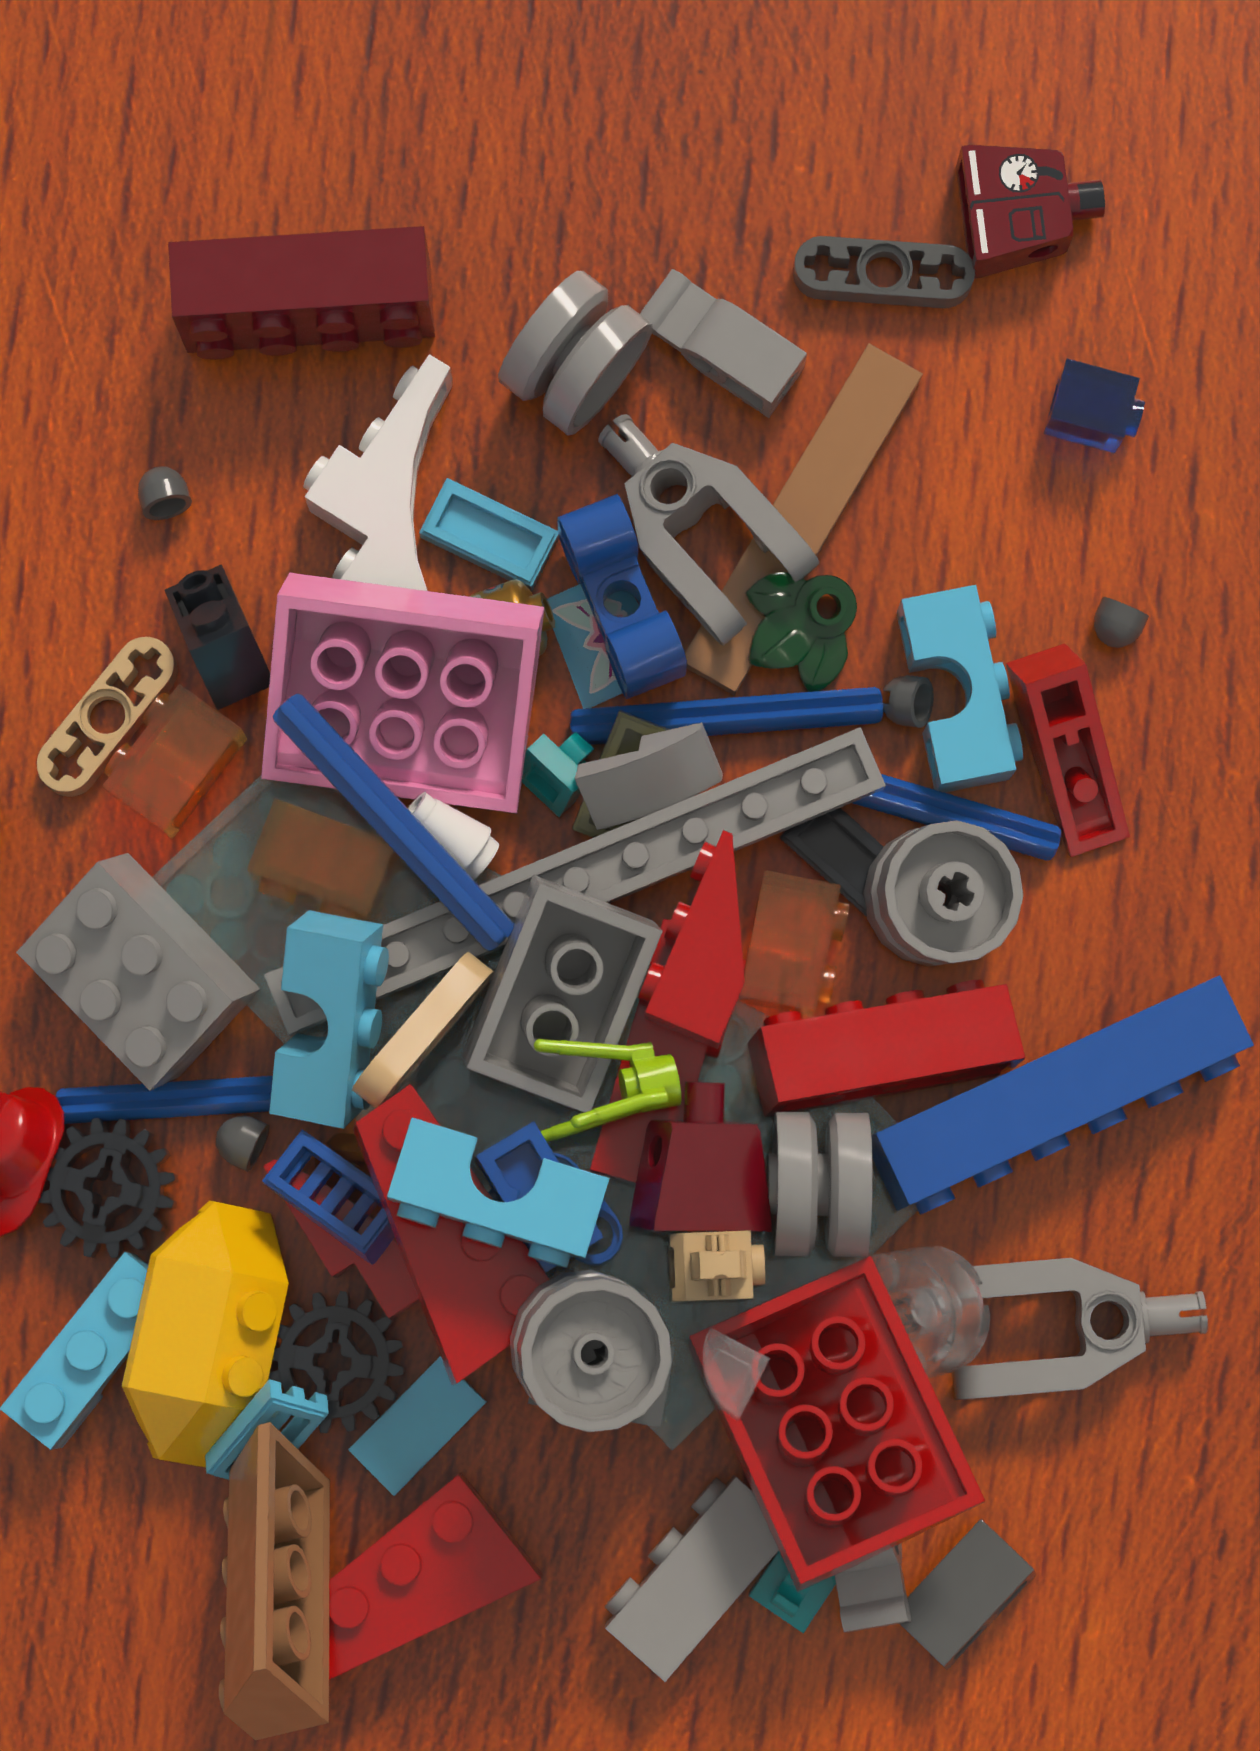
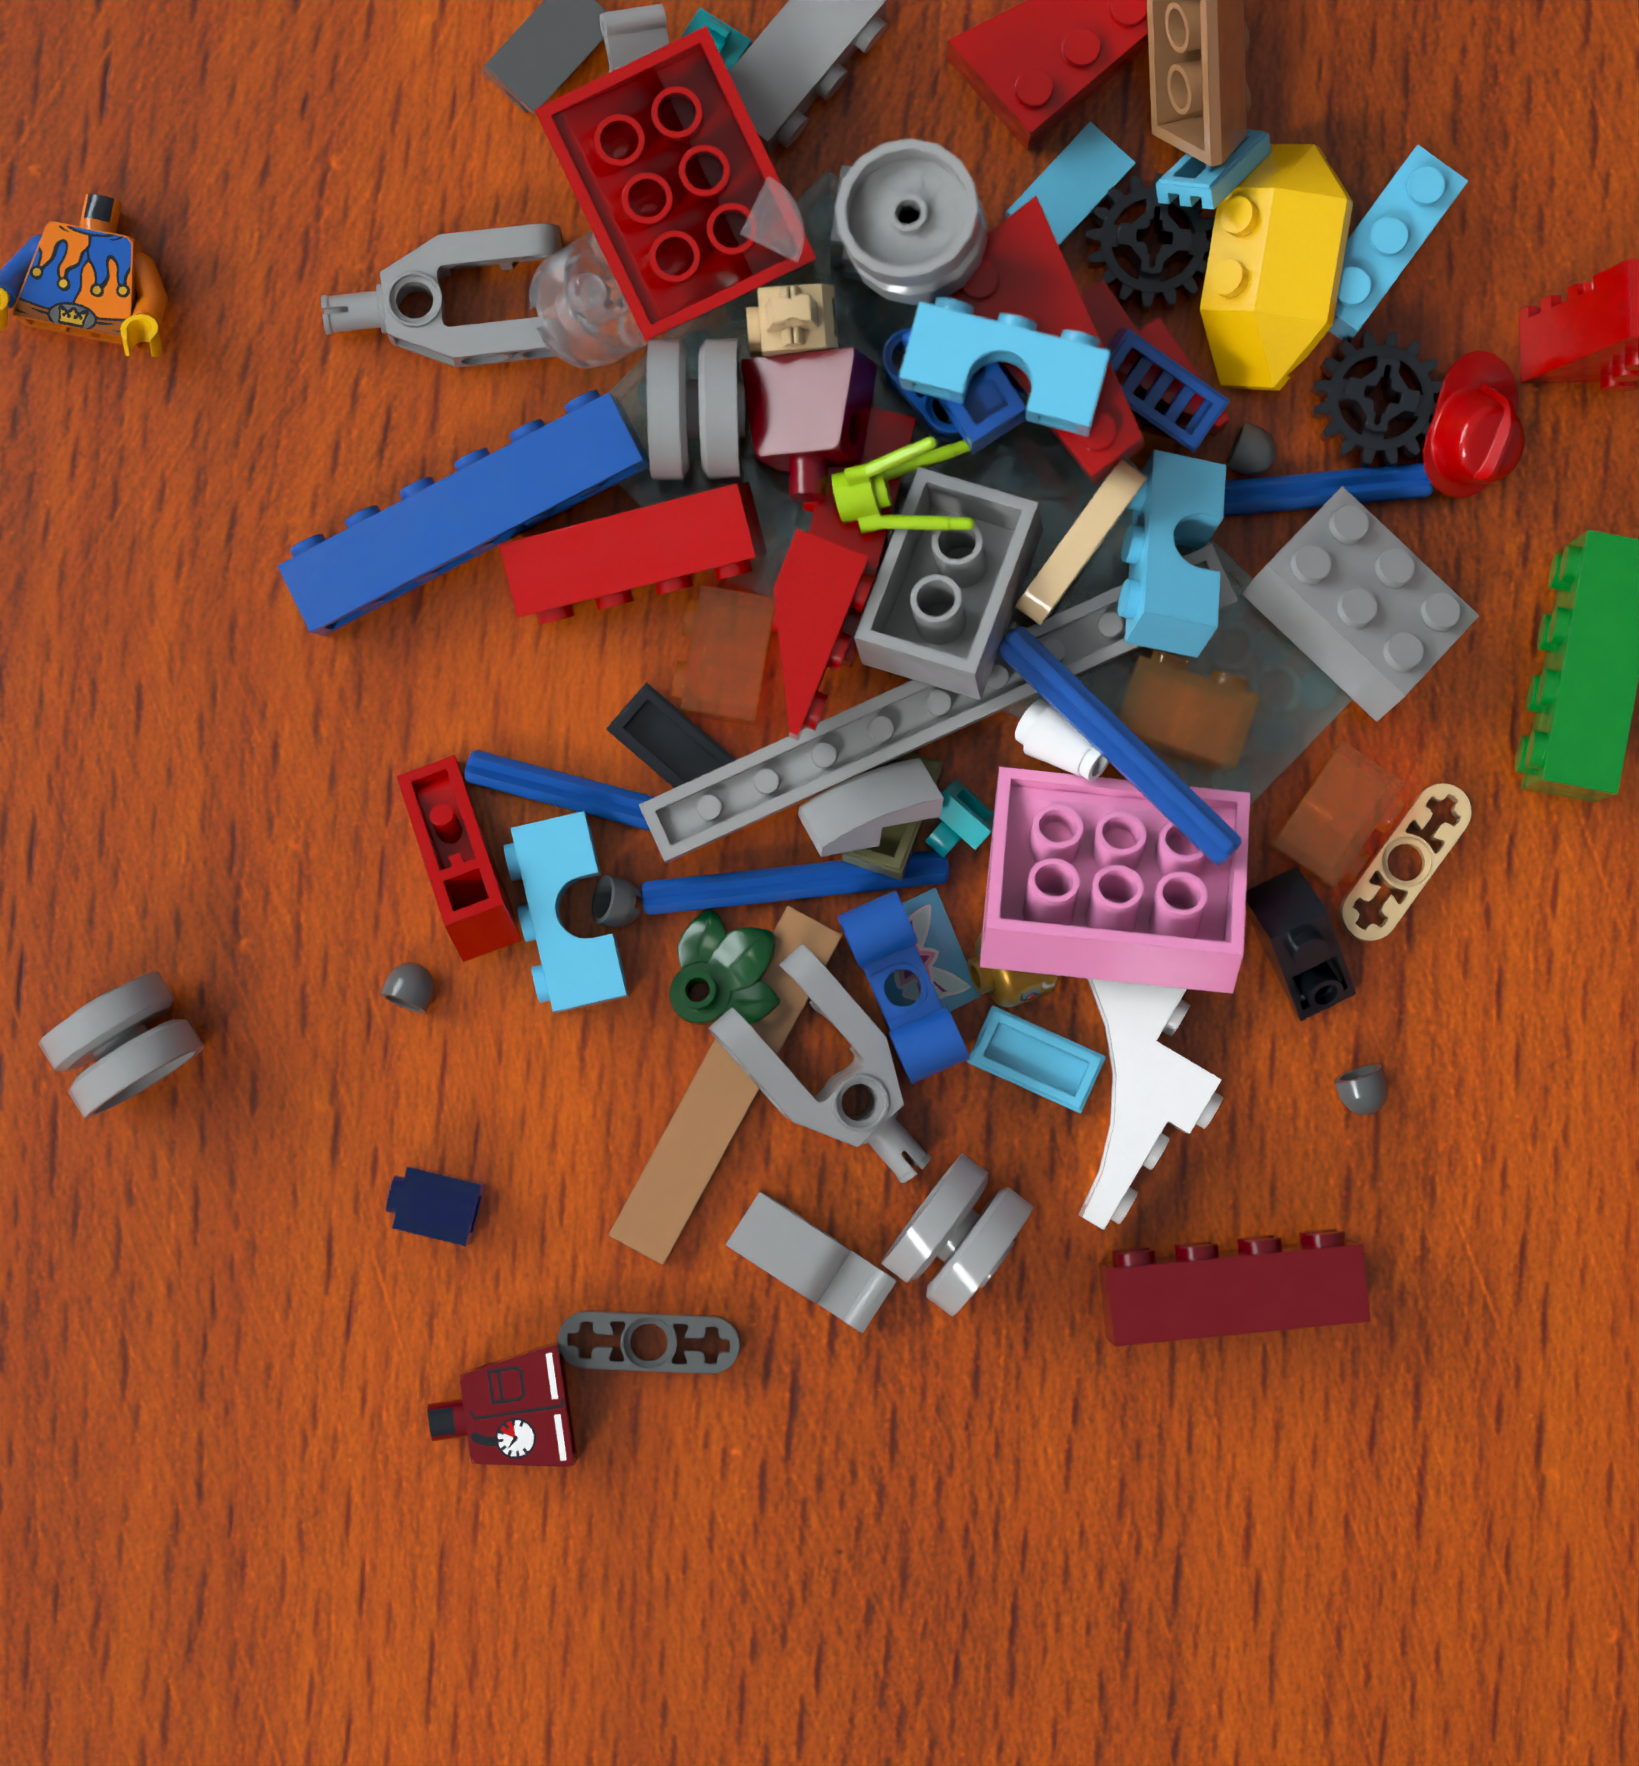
camera: 175 degrees left, 5 degrees up
(979, 884) = (552, 680): light grey wheel -> none

